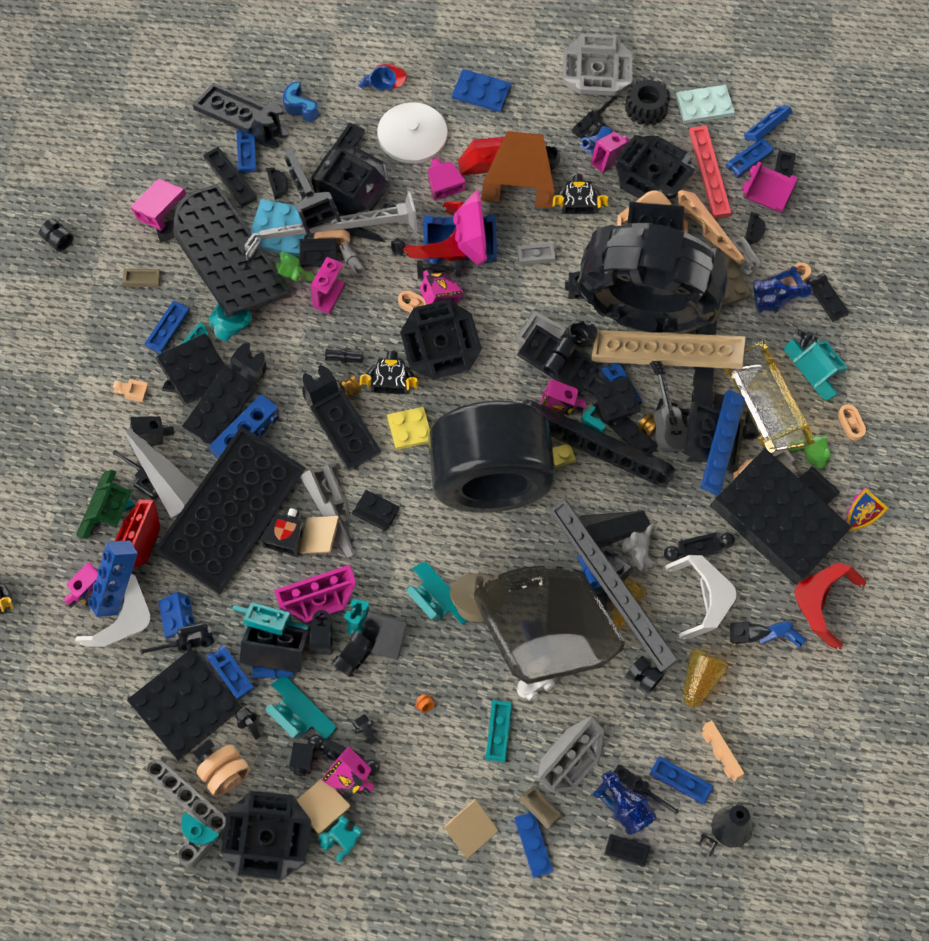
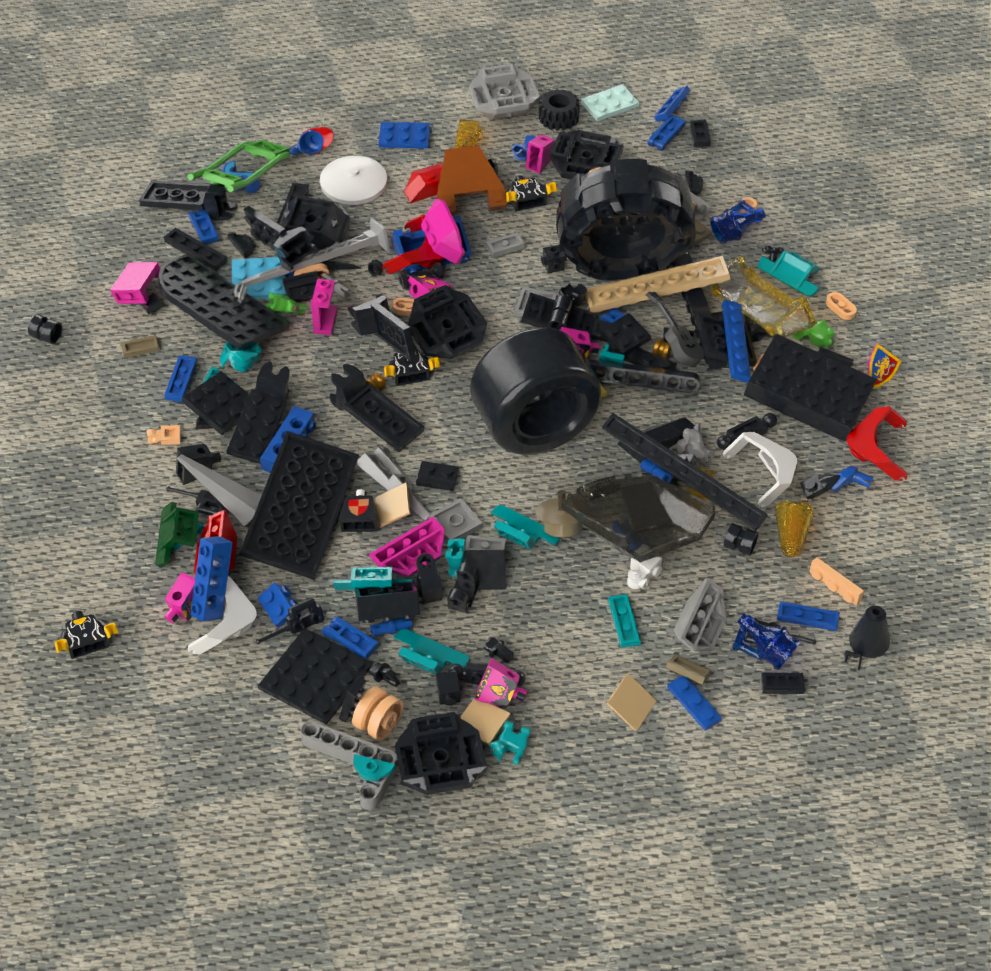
camera: 15 degrees left, 15 degrees down
(334, 73) = (272, 152): none -> bright green plate
(343, 356) = (360, 362): black pin -> none
(374, 569) = (457, 520): none -> light grey plate
(376, 310) = (376, 318): none -> black hinge
(392, 606) = (484, 543): none -> light grey plate
(409, 428) = (443, 404): light yellow plate -> none
(424, 700) = (546, 613): orange plate -> none
(444, 179) = (398, 207): dark pink torso -> none
(541, 112) = (468, 133): none -> clear yellow slope
(592, 118) = (513, 135): black piece -> none
(709, 172) = (632, 145): coral plate -> none
(769, 188) = (693, 149): dark pink panel -> none
(828, 297) = (780, 220): black plate -> none

